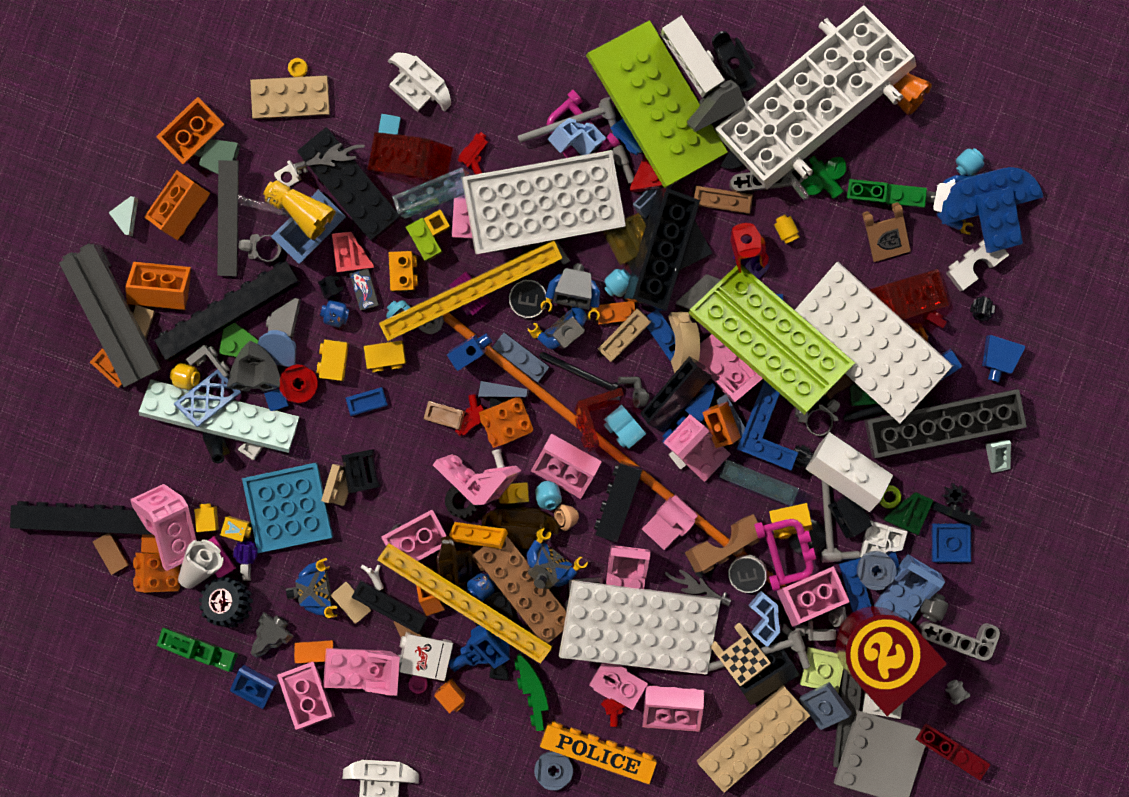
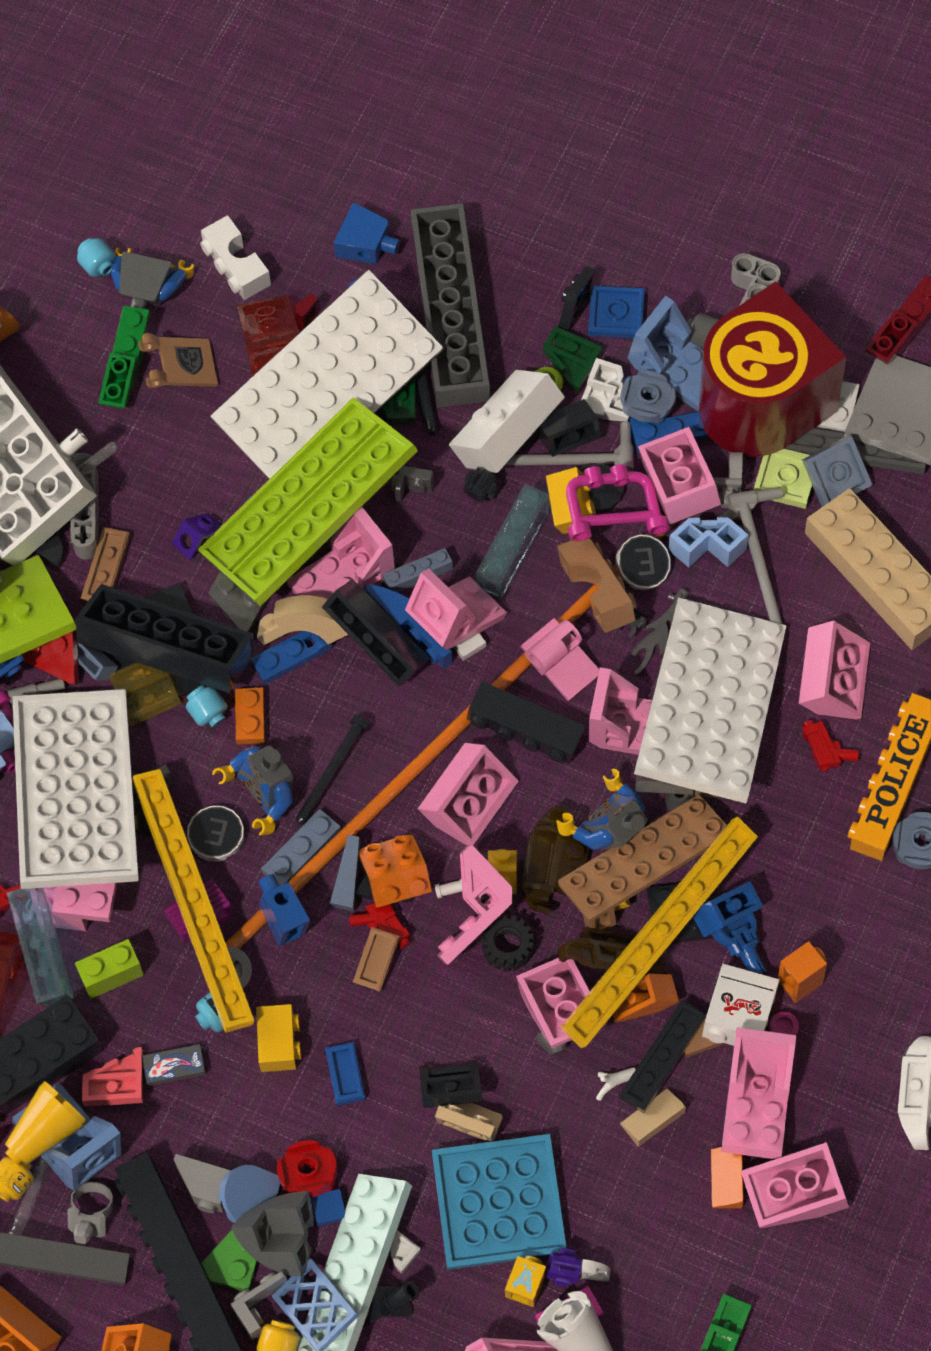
camera: 85 degrees left, 25 degrees down
(206, 518) = (505, 1323): yellow brick -> none
(225, 602) = (640, 1298): black wheel -> none
(253, 686) = (778, 1272): blue slope -> none
(270, 634) = (696, 1240): dark grey rock -> none
(313, 590) = (629, 1166): torso -> none
(329, 287) = (163, 1113): black tile -> none
(333, 360) = (276, 1114): yellow brick -> none
(334, 313) = (205, 1106): blue head -> none
(402, 271) = (152, 1004): light orange brick -> none
(437, 223) = (84, 942): yellow brick -> none
(478, 535) = (560, 913): light orange tile -> none
(481, 586) = (635, 916): blue head -> none
(499, 672) = (770, 912): black tile -> none
(531, 683) = (790, 860): green slope -> none
(548, 495) = (509, 818): medium azure head -> none
(566, 516) = (542, 797): light nougat cone -> none
(574, 289) = (209, 761): torso -> none
(584, 419) = (404, 751): clear red bracket -> none
(619, 684) = (793, 740): bright pink piece -> none
(624, 335) = (283, 703): tan tile -> none
(624, 426) = (417, 711): medium azure brick -> none
(640, 396) = (375, 688): dark grey plate -> none
(721, 425) = (408, 574): orange brick -> none
(743, 658) = (763, 572): tan flag -> none
(752, 438) = (449, 540): blue plate -> none
(756, 247) = (169, 530): red piece -> none
(771, 678) = (789, 551): black slope -> none
(786, 228) = (157, 485): yellow brick -> none
(825, 176) = (96, 432): green plant -> none
(832, 406) = (427, 444): light grey piece -> none
(837, 616) = (713, 454): light grey plate -> none
(956, 691) = (824, 312): light grey brick -> none
(958, 498) = (549, 302): black gear -> none
(982, 309) = (297, 253): black gear -> none
(994, 199) = (145, 224): blue plate -> none
(999, 455) = (499, 246): light aqua slope -> none

